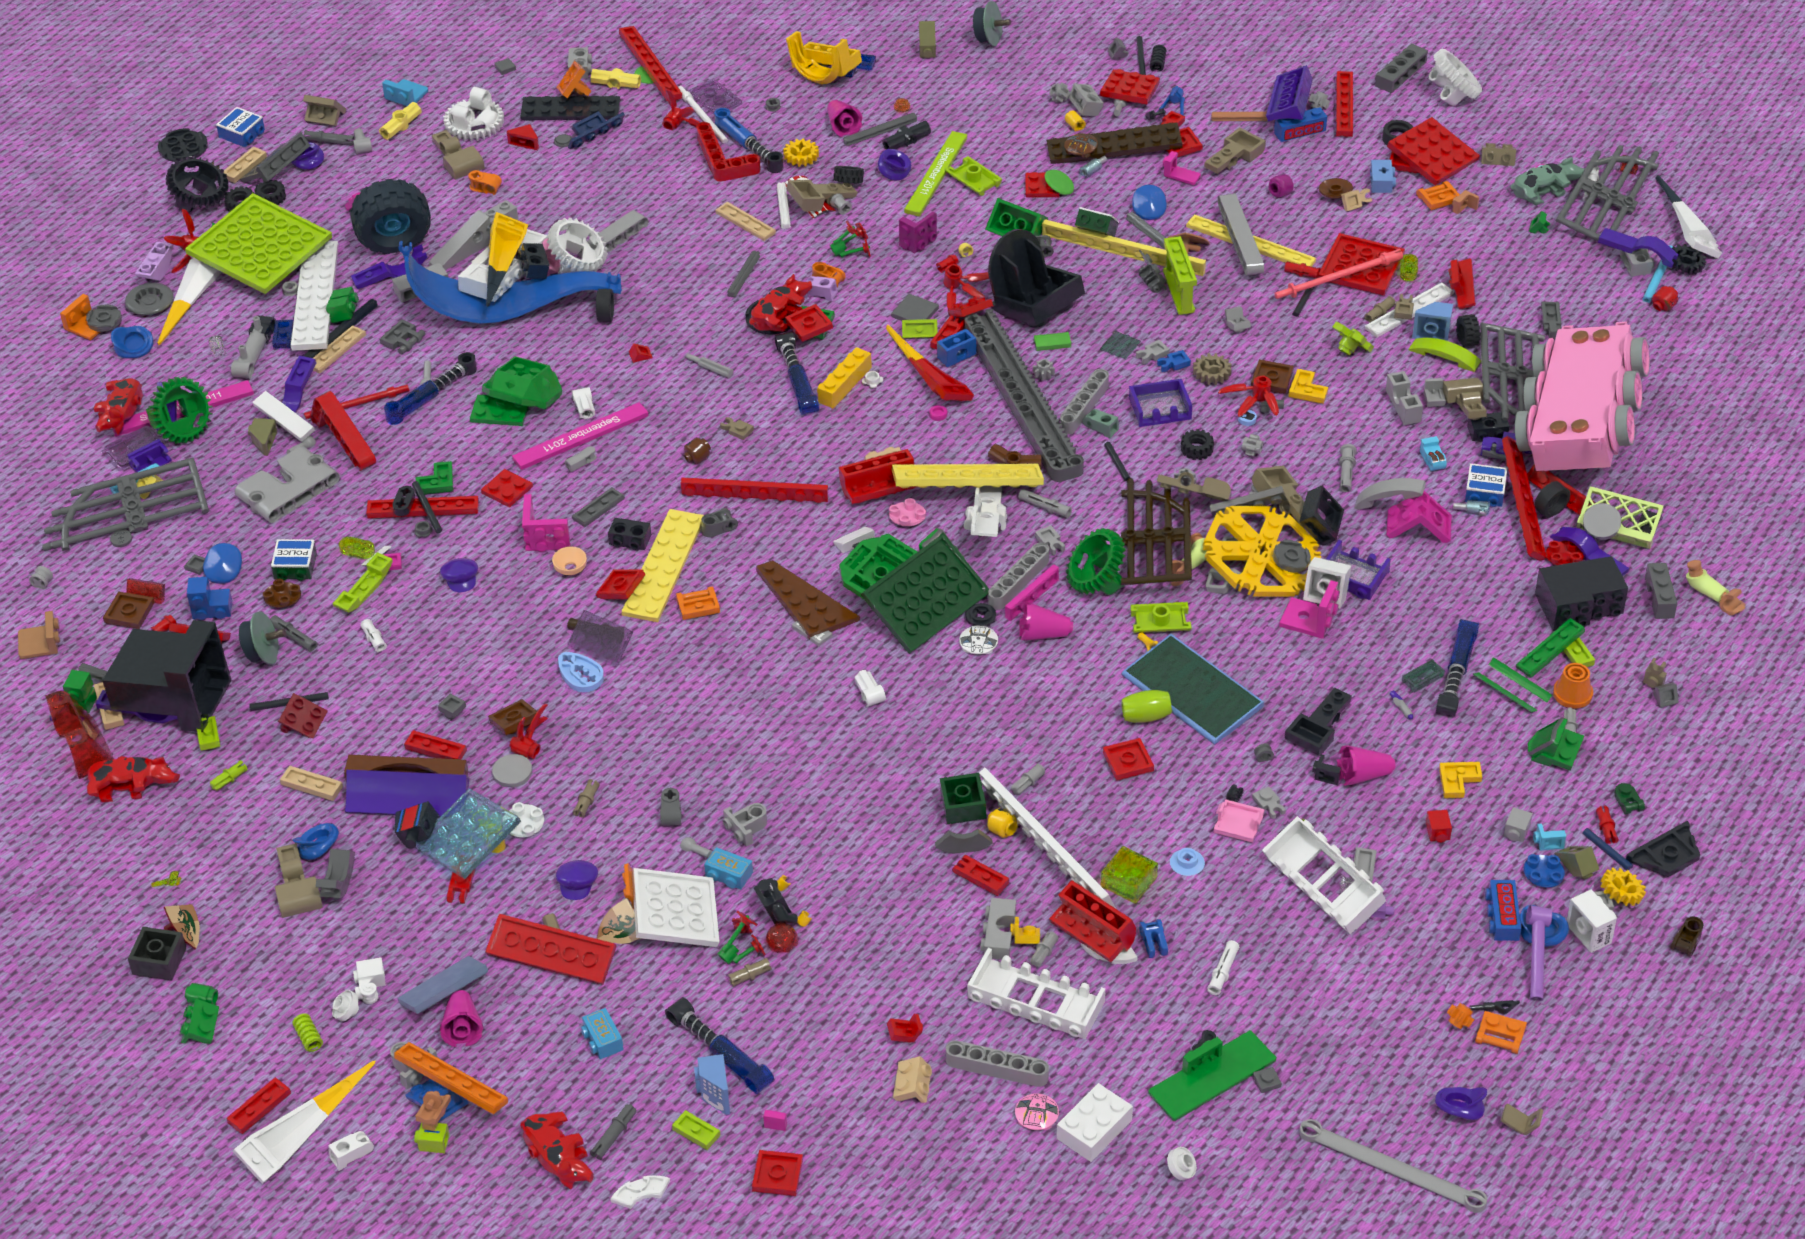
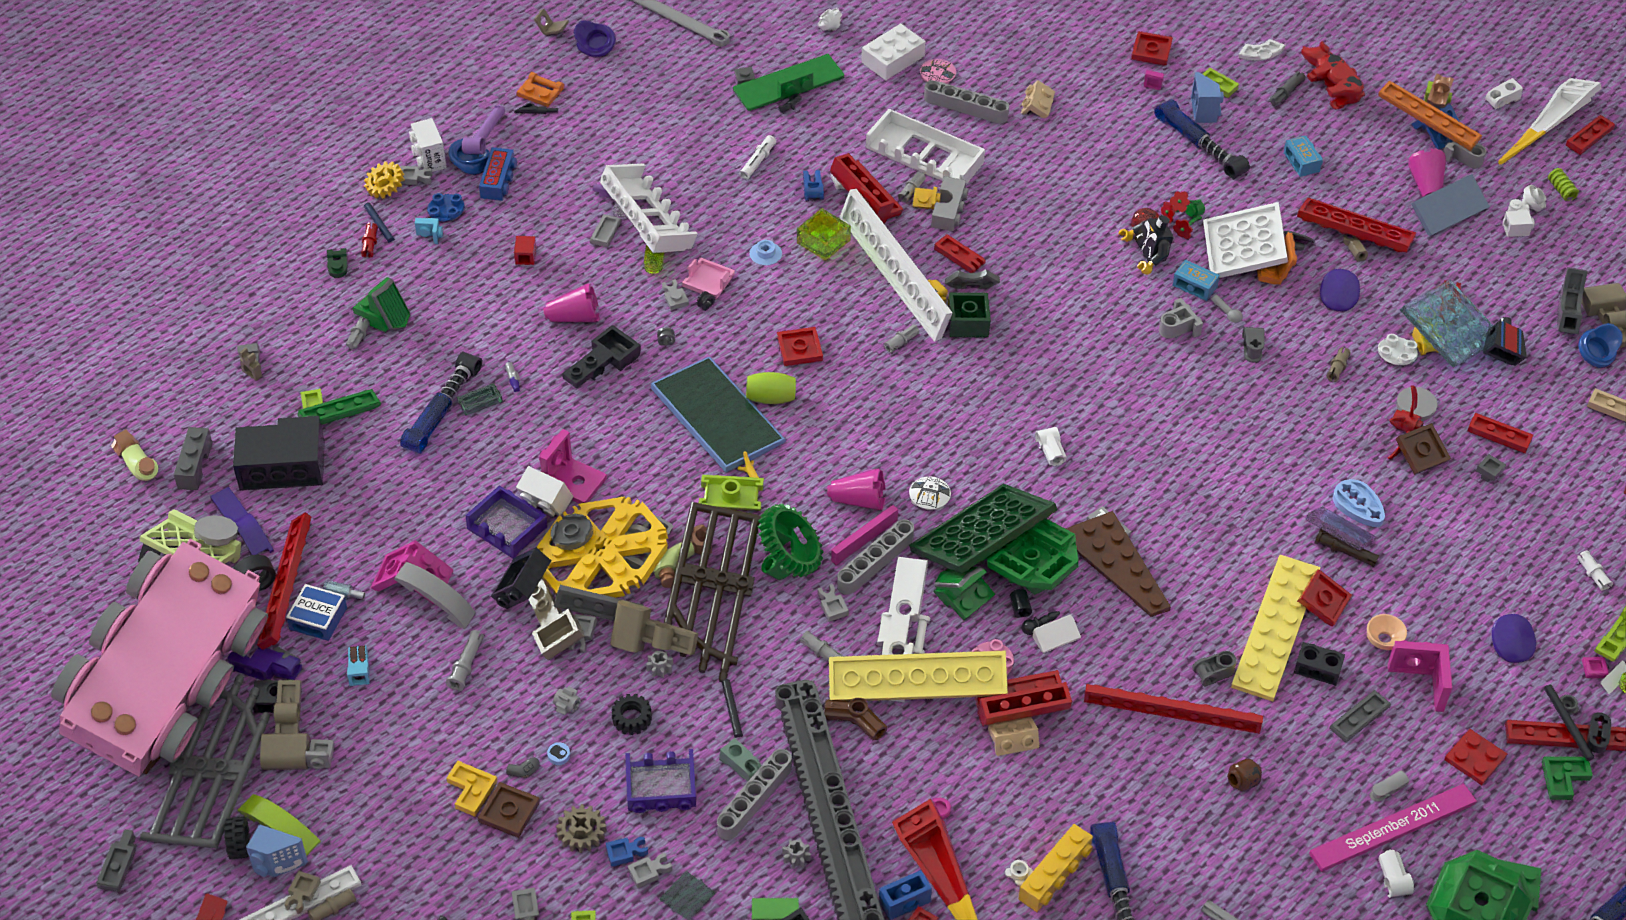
camera: 175 degrees left, 5 degrees up
(393, 791) = (1520, 379): dark purple arch -> none
(406, 764) = (1567, 413): reddish brown arch -> none
(698, 603) = (1235, 563): orange plate -> none
(738, 429) = (1193, 813): dark tan plate -> none
(749, 972) = (1162, 197): dark tan pin -> none
(905, 1030) = (1042, 135): red bracket -> none
(982, 609) = (925, 514): black gear -> none
(1260, 393) = (530, 777): red plant -> none
(1326, 772) = (612, 310): black bracket -> none
(1351, 339) = (388, 844): lime plant -> none
(1407, 405) = (362, 743): light grey arch -> none
(1455, 774) = (488, 299): yellow plate -> none
(1460, 1015) = (570, 96): orange gear -> none
(1518, 824) = (452, 243): light grey brick -> none
(1519, 679) = (404, 378): green sticker -> none
(1563, 552) = (273, 520): red dish -> none
(1573, 686) = (336, 362): orange piece -> none
(1579, 860) = (412, 207): olive slope -> none
(1667, 852) = (326, 210): black wing -> none
(1688, 936) = (347, 138): dark brown piece -> none

